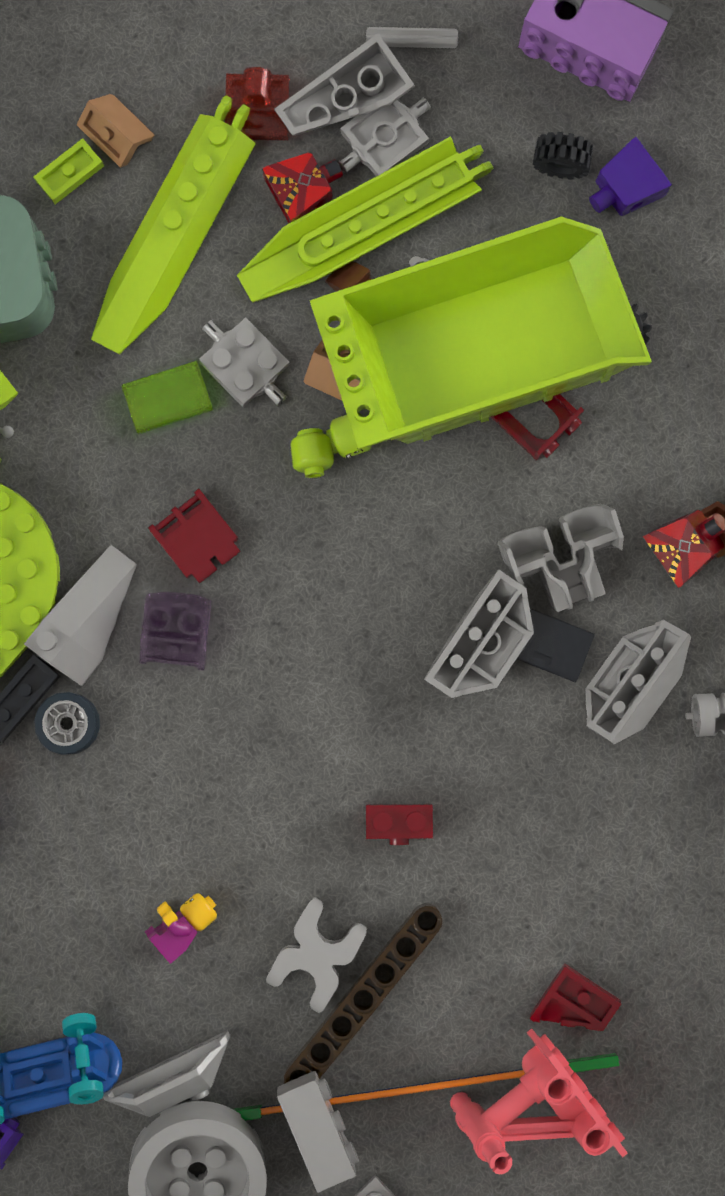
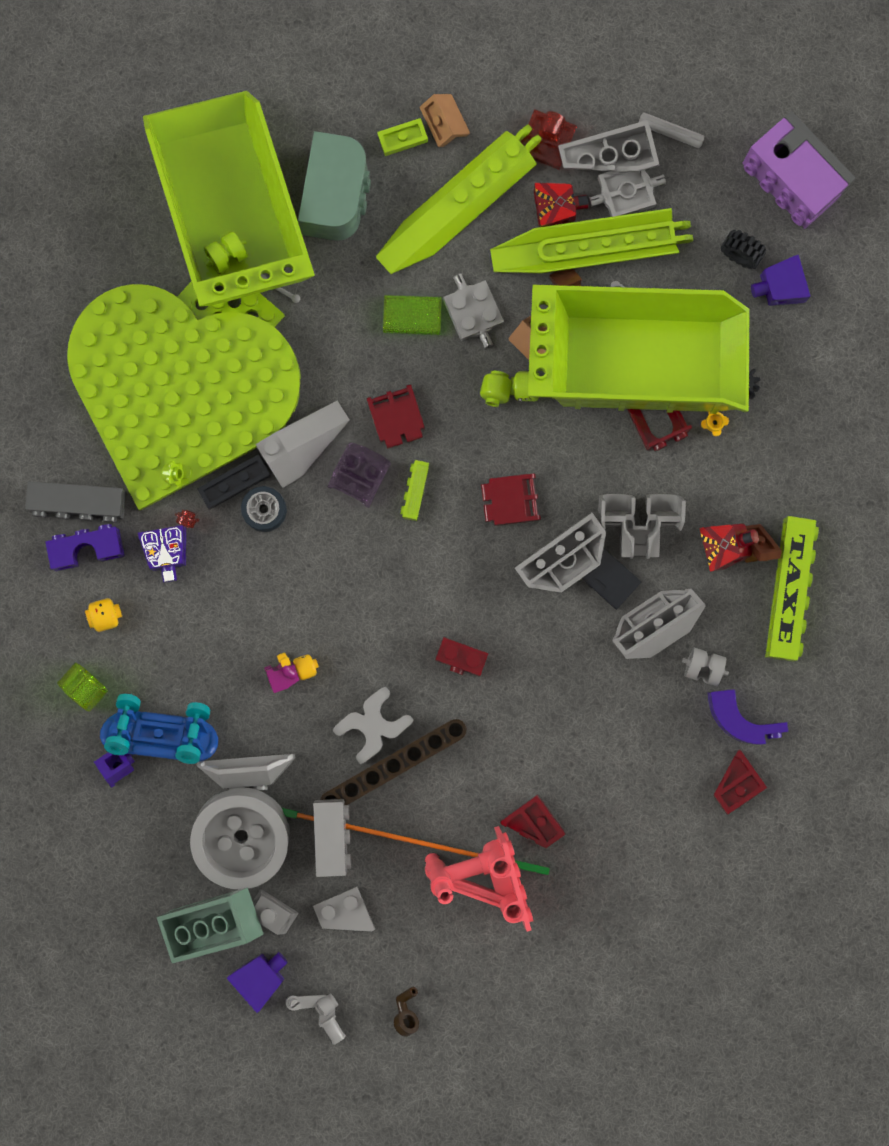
camera: 20 degrees right, 0 degrees up
(257, 624) = (415, 491): none -> lime piece
(384, 591) = (510, 500): none -> dark red plate
(615, 400) = (715, 429): none -> yellow plate

